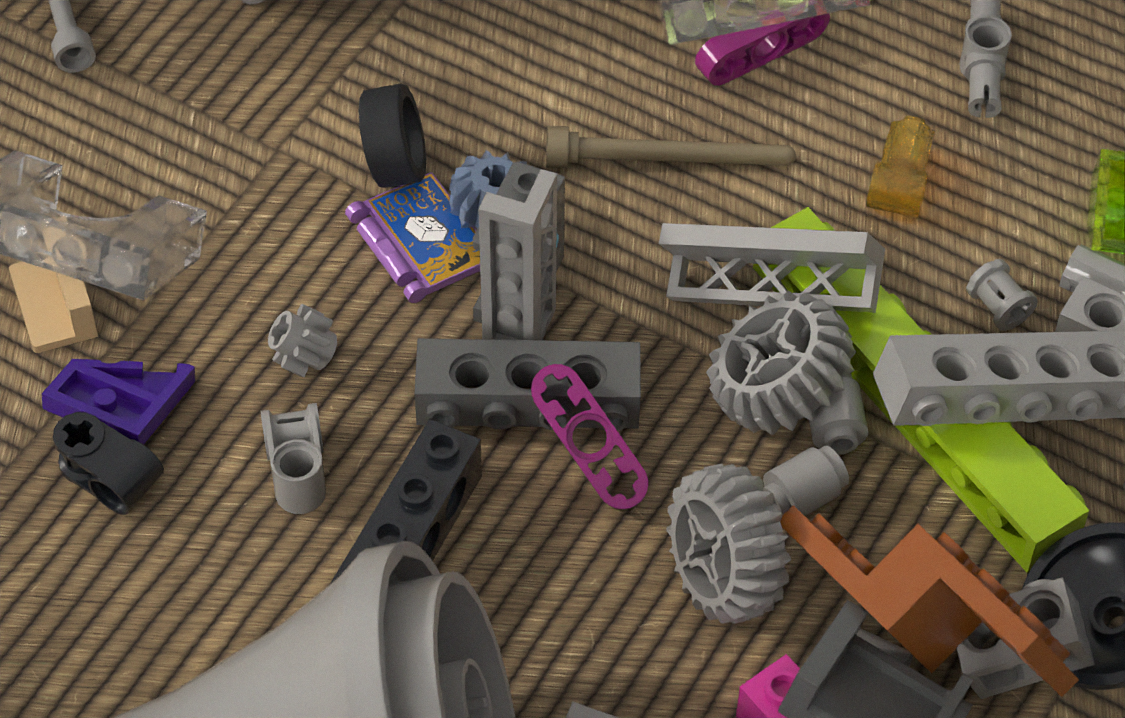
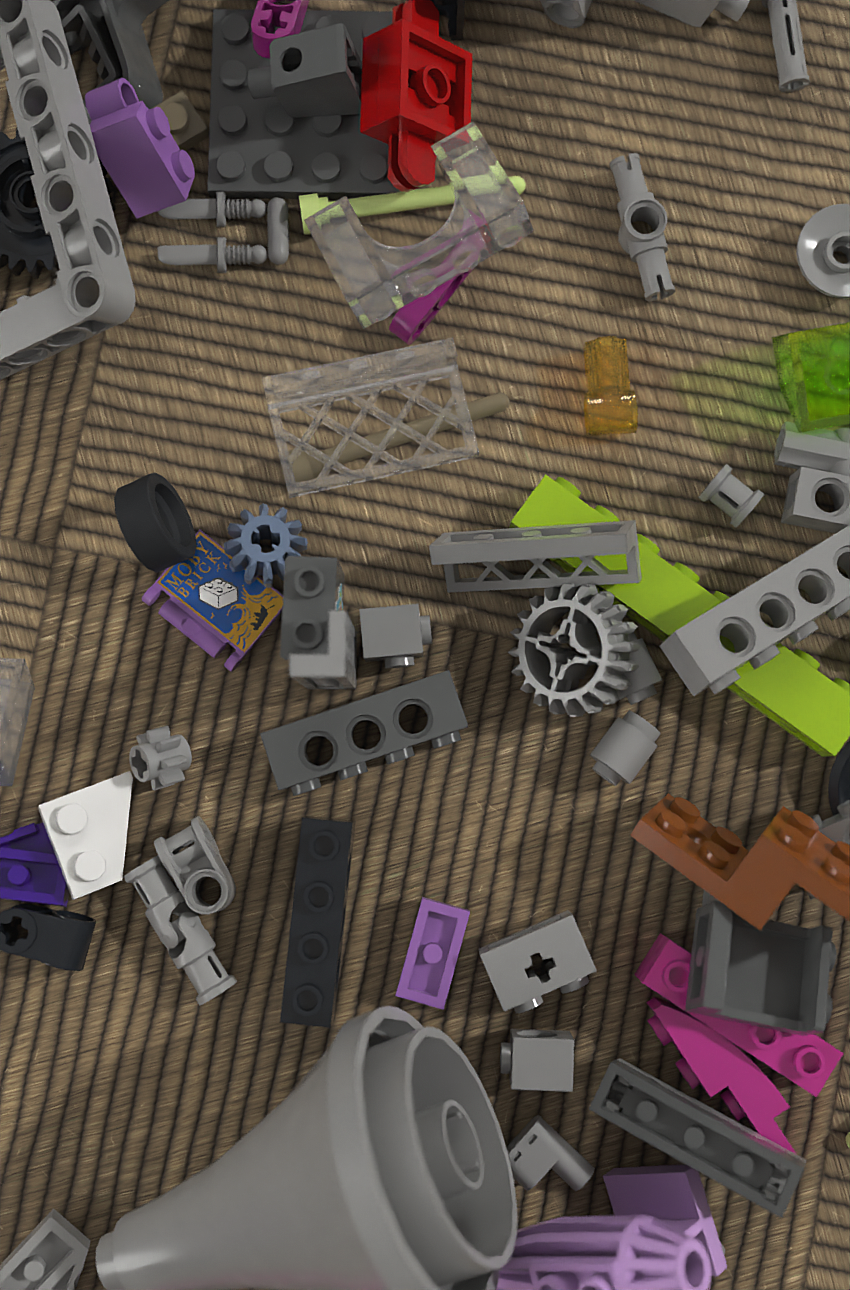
camera: 15 degrees left, 30 degrees up
(197, 384) = (90, 833): none -> white wing
(250, 505) = (185, 938): none -> light grey piece
(525, 605) = (432, 953): none -> medium lavender plate
(576, 394) = (427, 758): magenta beam -> none
(594, 305) = (394, 634): none -> light grey brick
(649, 87) = (363, 377): none -> clear fence
(650, 634) = (552, 938): none -> light grey brick
(728, 543) = (590, 851): light grey gear -> none

